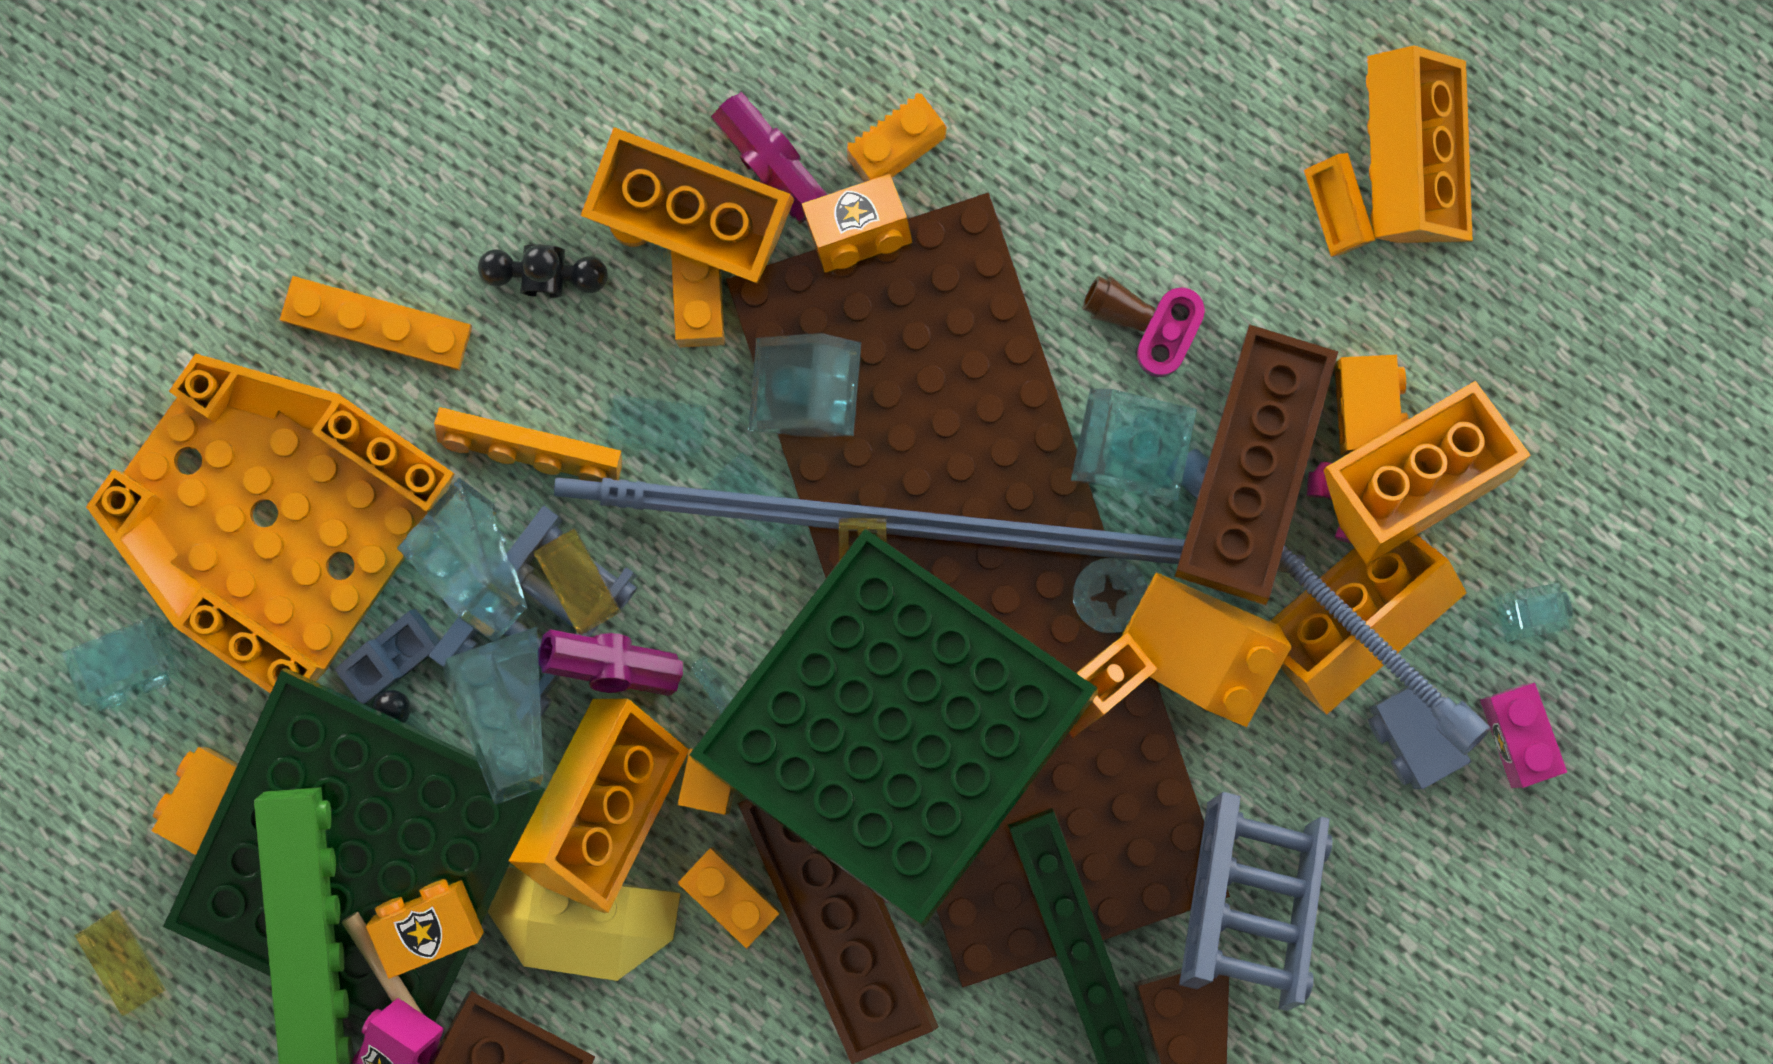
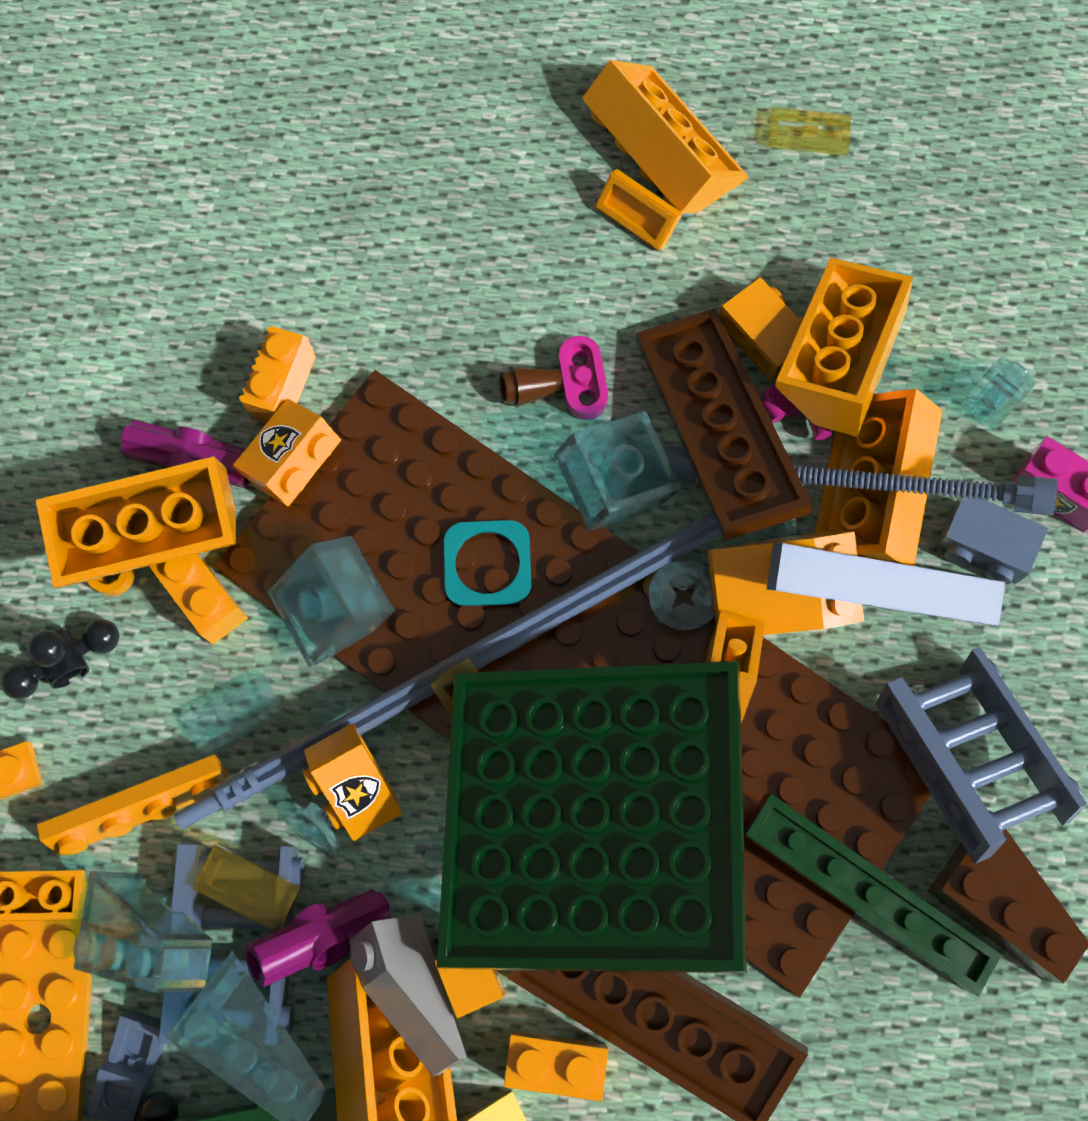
camera: 30 degrees left, 10 degrees down
(654, 752) = (405, 985): none -> light grey slope
(661, 573) = (317, 833): none -> clear light blue tile
(718, 555) = (351, 783): none -> light orange brick
(962, 402) = (460, 533): none -> teal piece
(1285, 711) = (884, 584): none -> tile
(1551, 248) = (809, 137): none -> clear yellow tile

